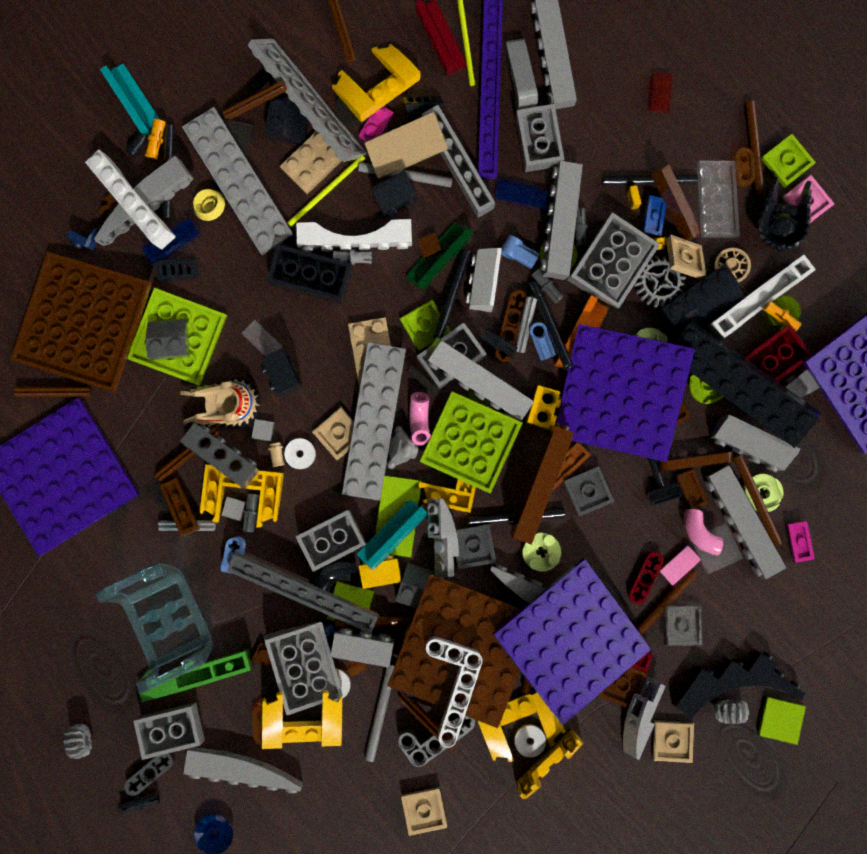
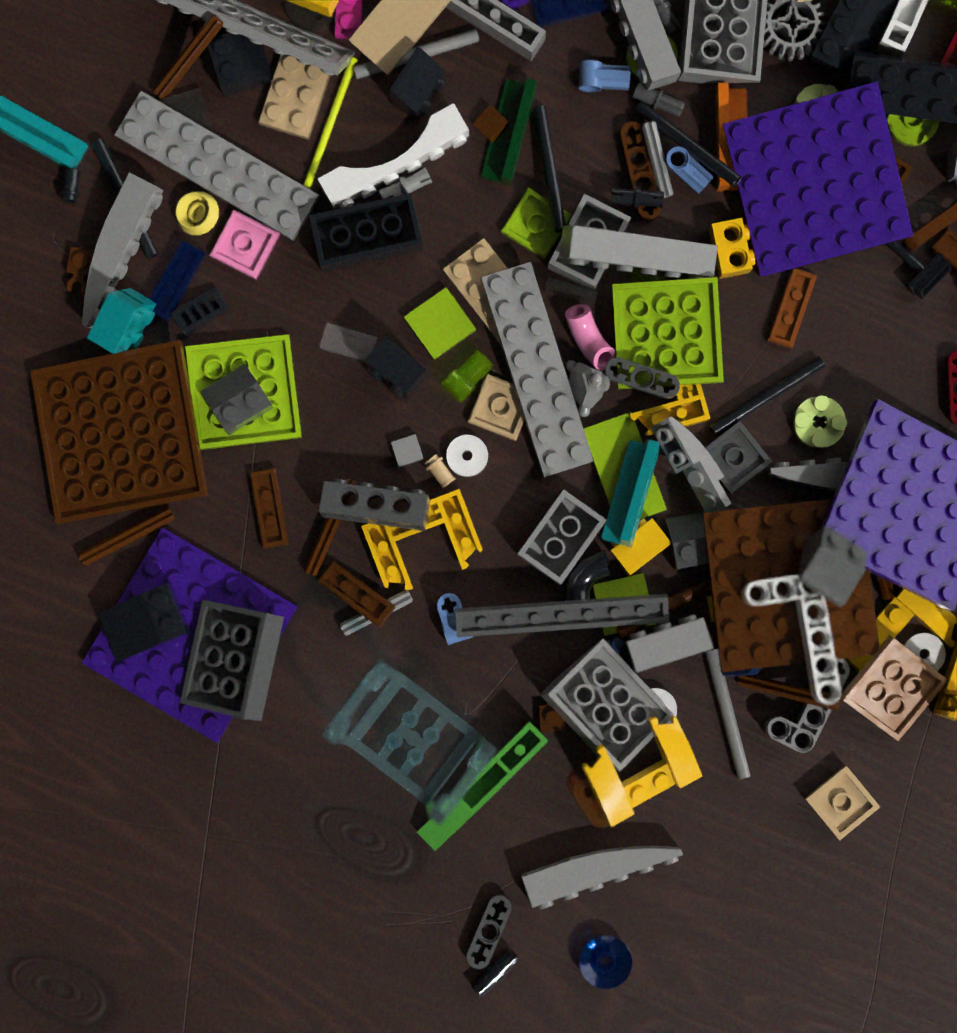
camera: 25 degrees left, 0 degrees up
(32, 454) = (144, 622): none -> black slope
(74, 509) = (232, 660): none -> dark grey slope
(77, 741) = (384, 936): light grey gear -> none
(79, 241) = (64, 337): dark blue plate -> none
(119, 249) = (122, 320): none -> teal piece
(131, 202) = (101, 253): white arch -> none
(154, 421) = (269, 508): none -> reddish brown tile
(155, 138) = (89, 166): light orange pin -> none
(169, 731) = (487, 866): light grey brick -> none
(227, 404) = (349, 440): tan piece -> none
(229, 241) = (244, 244): none -> bright pink tile
(233, 508) = (422, 563): light grey tile -> none
(250, 512) = (445, 557): dark grey axle -> none
(321, 404) = (463, 380): none -> clear neon green piece
(328, 358) = (440, 323): none -> lime tile
(356, 667) = (671, 673): clear orange plate -> none
(432, 449) = (646, 388): none -> dark grey beam
(484, 279) = (580, 130): white slope -> none
(493, 655) = (831, 565): none -> dark grey slope
(496, 754) = (893, 688): none -> medium nougat plate
(541, 483) = (778, 335): reddish brown brick -> none
(588, 491) = (837, 320): dark grey plate -> none

